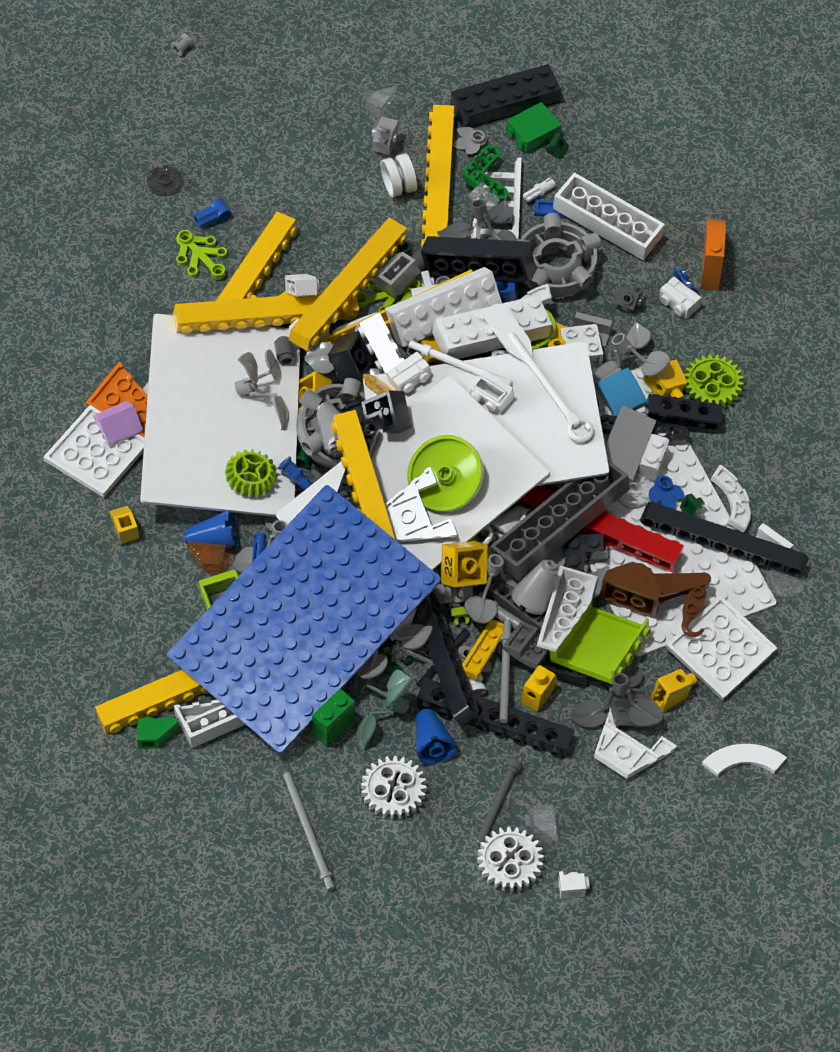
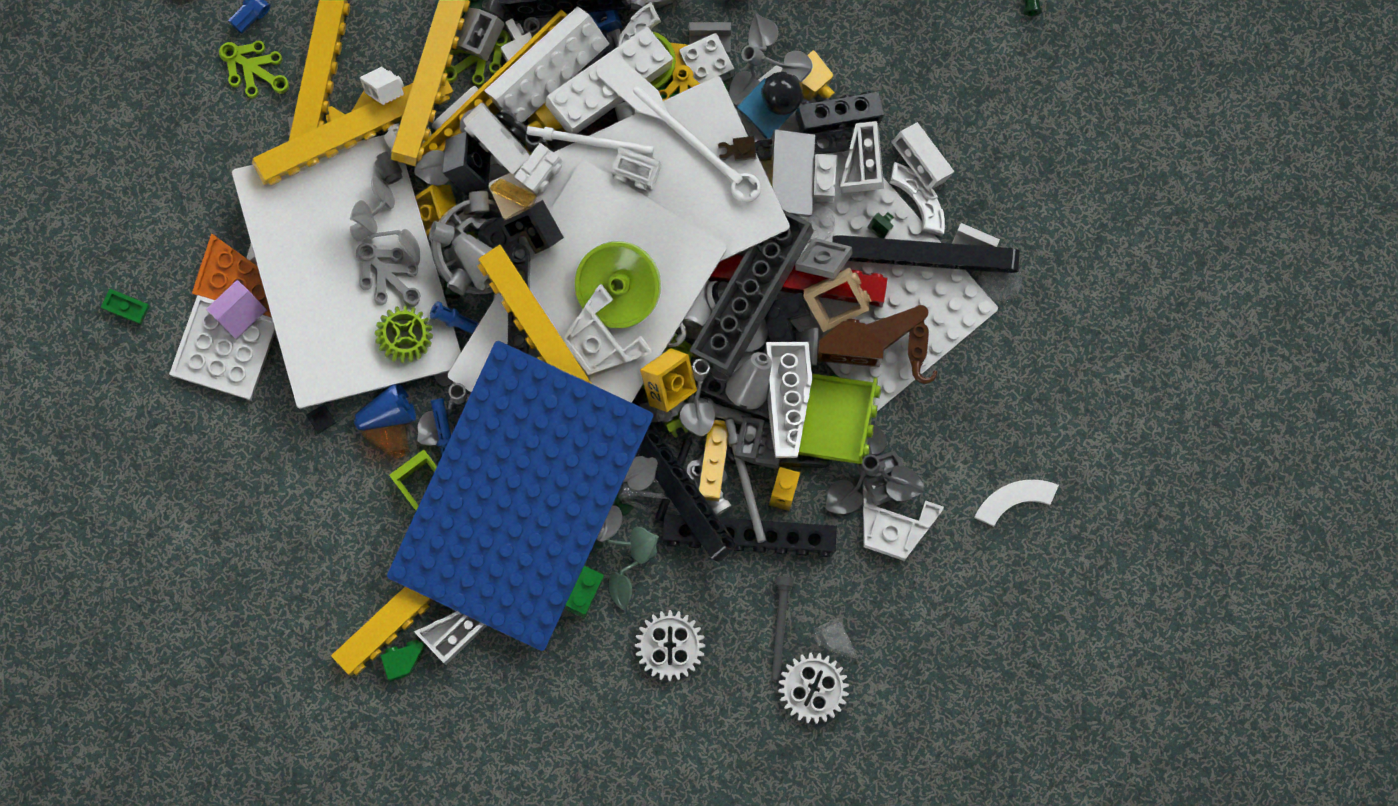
camera: 20 degrees left, 20 degrees up
(27, 398) = (125, 306): none -> green plate
(124, 524) = (284, 427): yellow slope -> none
(157, 526) = (321, 418): none -> black plate
(254, 425) = (385, 272): none -> light grey plant
(325, 876) = (623, 753): light grey bar -> none
(400, 338) = (517, 128): none -> dark grey plate
(432, 738) = (692, 578): blue cone -> none
(572, 884) = (885, 696): white brick -> none
(586, 400) = (742, 149): none -> dark brown plate
(631, 512) = (823, 258): none -> light grey plate
(637, 378) = (782, 93): none -> black cylinder
(652, 534) = (817, 308): none -> tan window
(666, 494) = (849, 219): blue plate -> none
(672, 689) = (922, 446): yellow torso -> none
(692, 453) = (864, 161): none -> white wedge
(713, 380) = (843, 51): lime gear -> none
(725, 650) = (965, 382): white plate -> none
(745, 465) = (922, 156): none -> white brick

